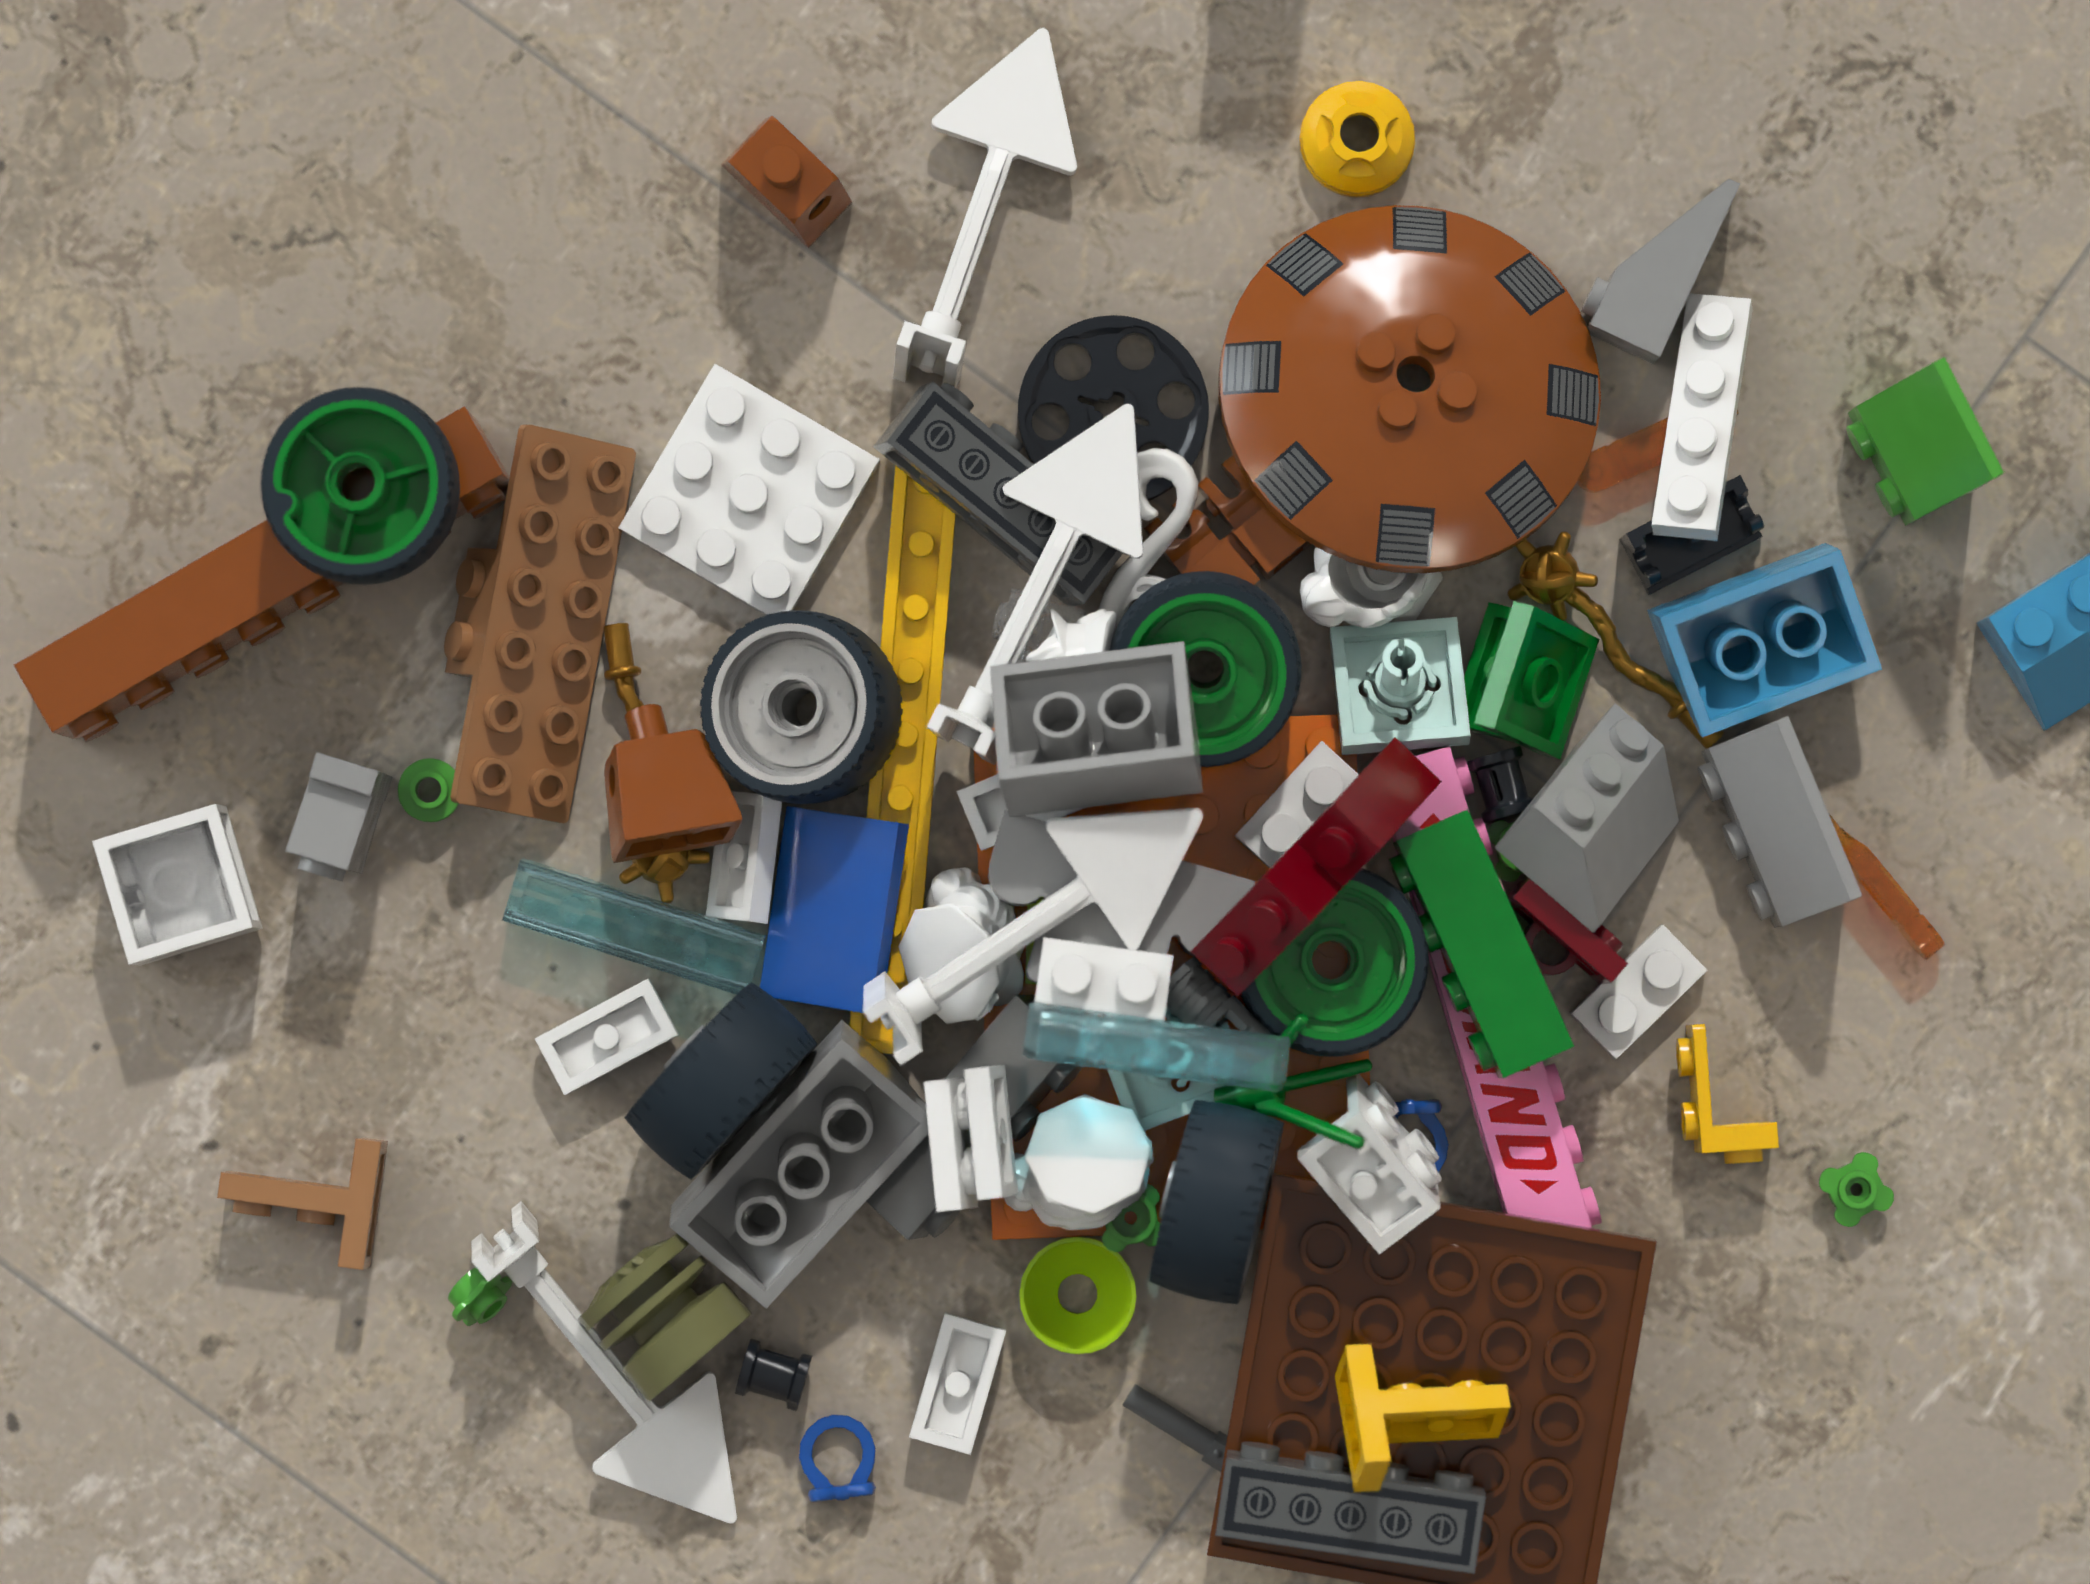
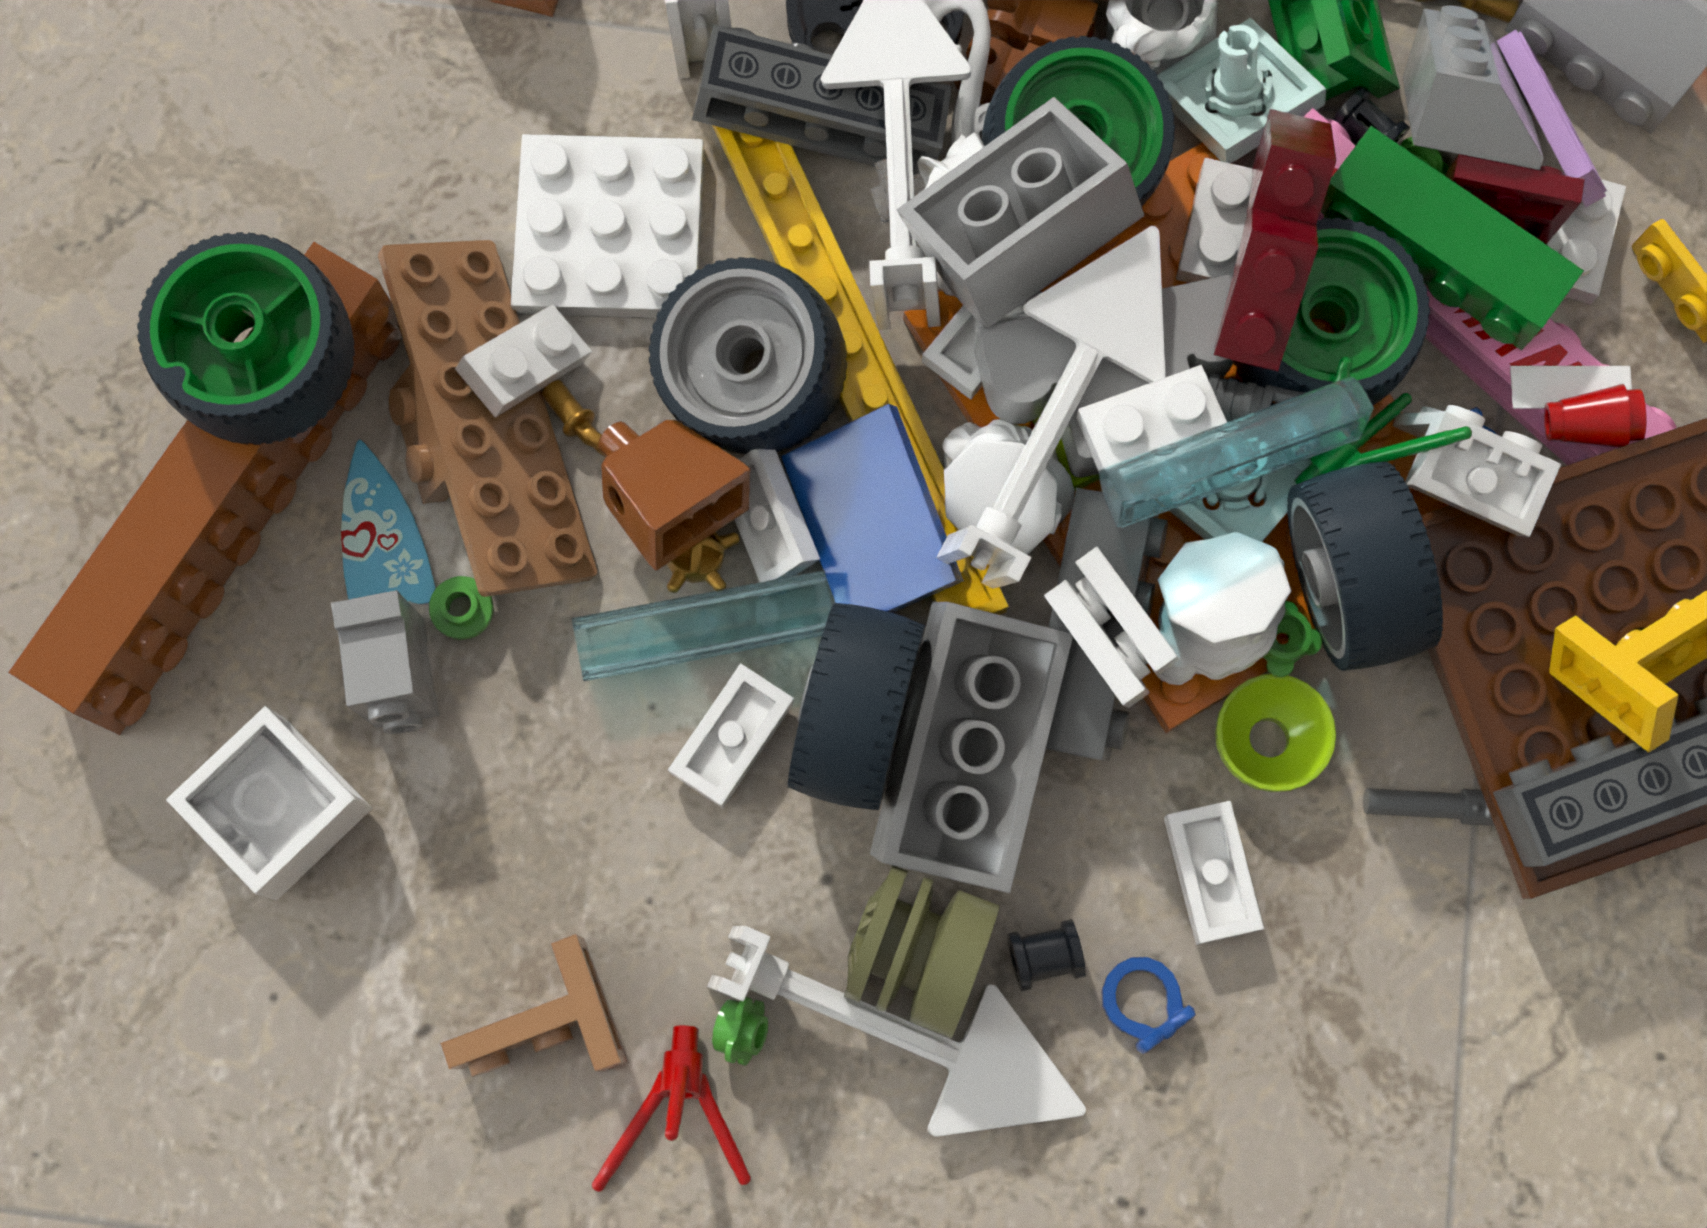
camera: 25 degrees left, 10 degrees down
(390, 683) = (380, 535): none -> medium azure sticker
(406, 1309) = (678, 1080): none -> red plant
(601, 594) = (523, 360): none -> white plate
(1517, 1178) = (1598, 417): none -> red cone
(1521, 1135) = (1541, 384): none -> white sticker
(1667, 873) = (1551, 115): none -> lavender tile

